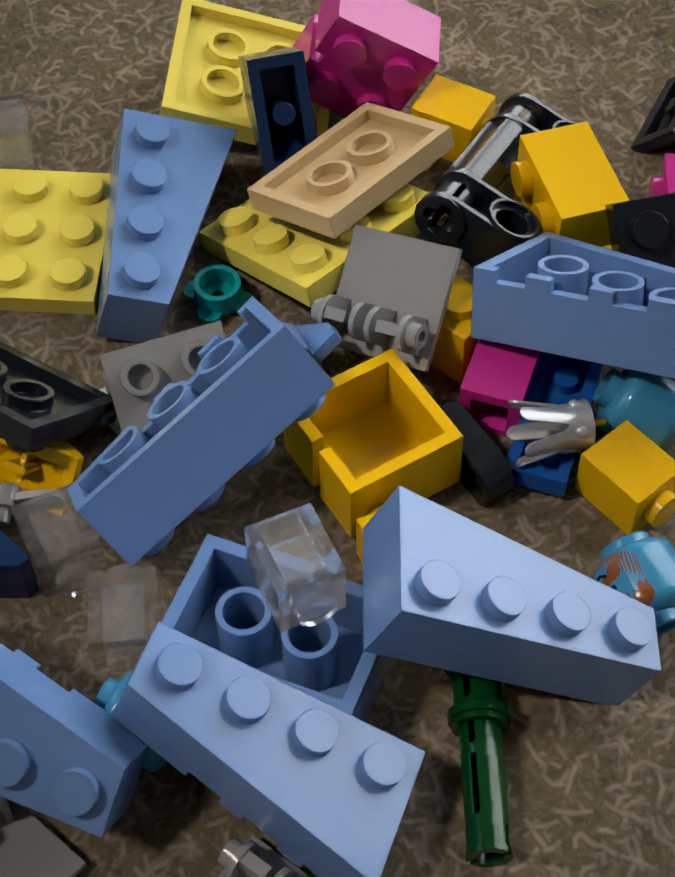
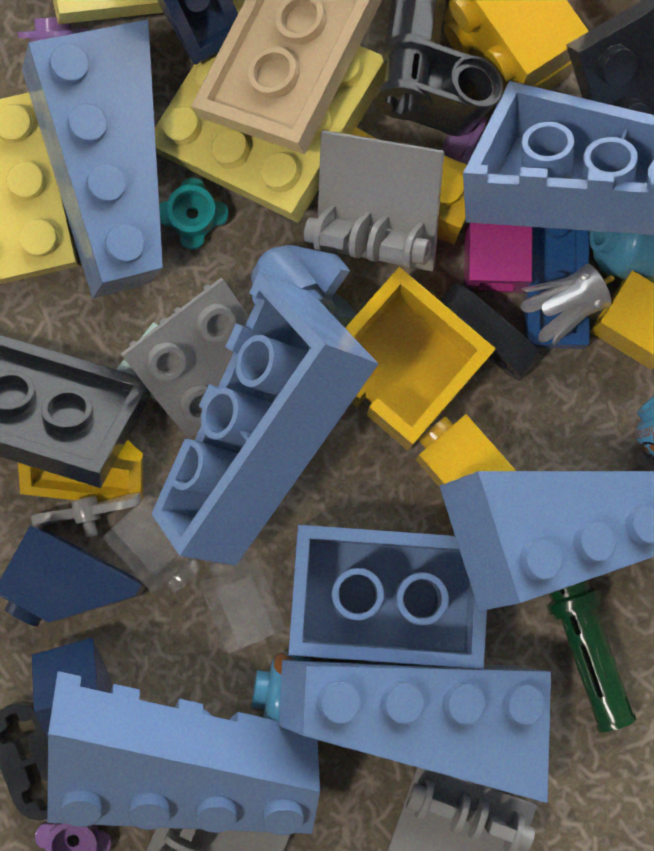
camera: 20 degrees left, 30 degrees up
(296, 568) = (401, 557): clear brick -> none

